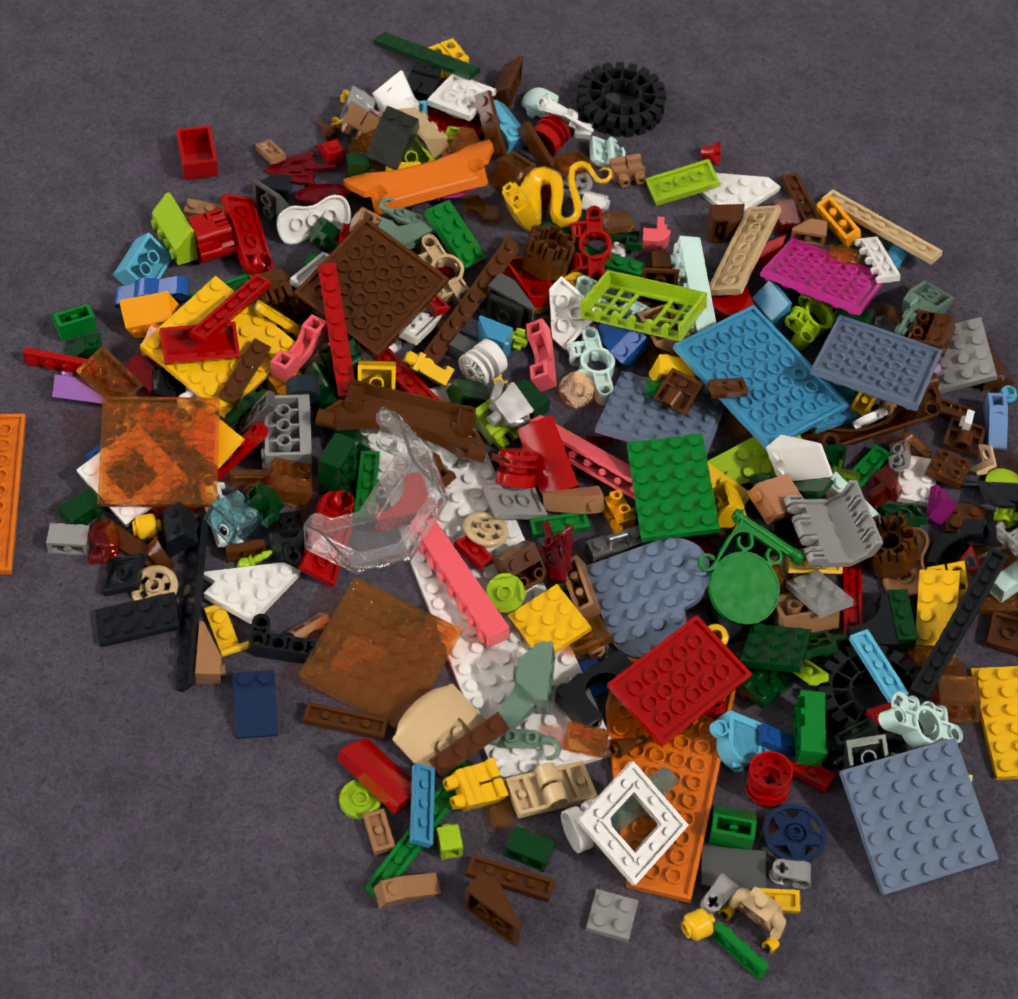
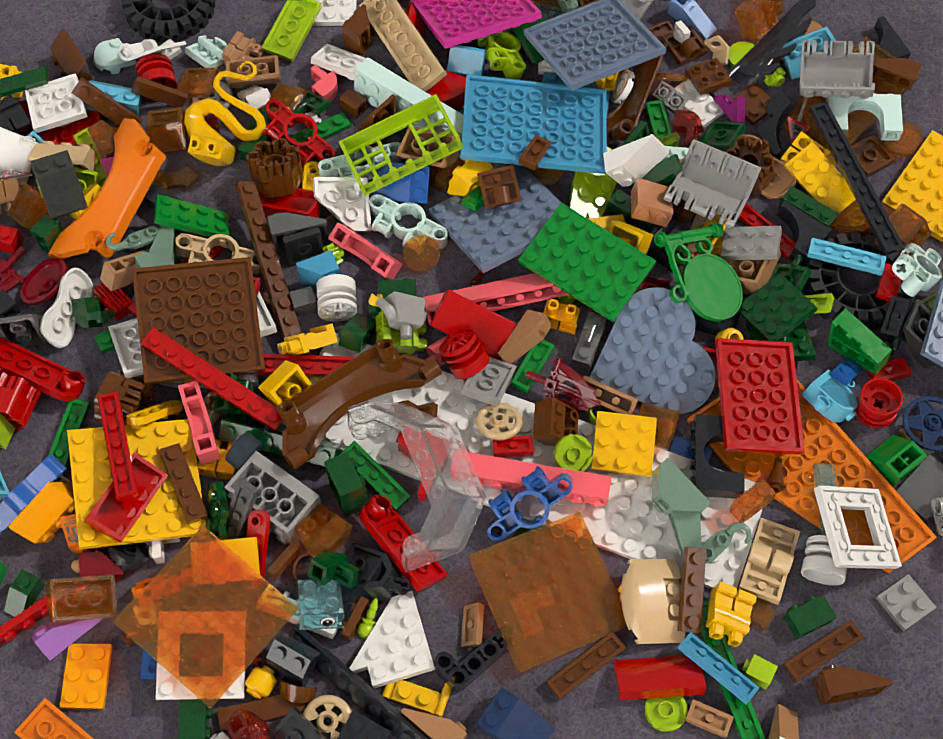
camera: 45 degrees left, 10 degrees up
(61, 427) = (86, 676): none -> light orange plate
(452, 589) = (536, 484): none -> blue piece
(618, 189) = (267, 71): none -> medium nougat slope
(685, 225) = (337, 60): none -> white plate

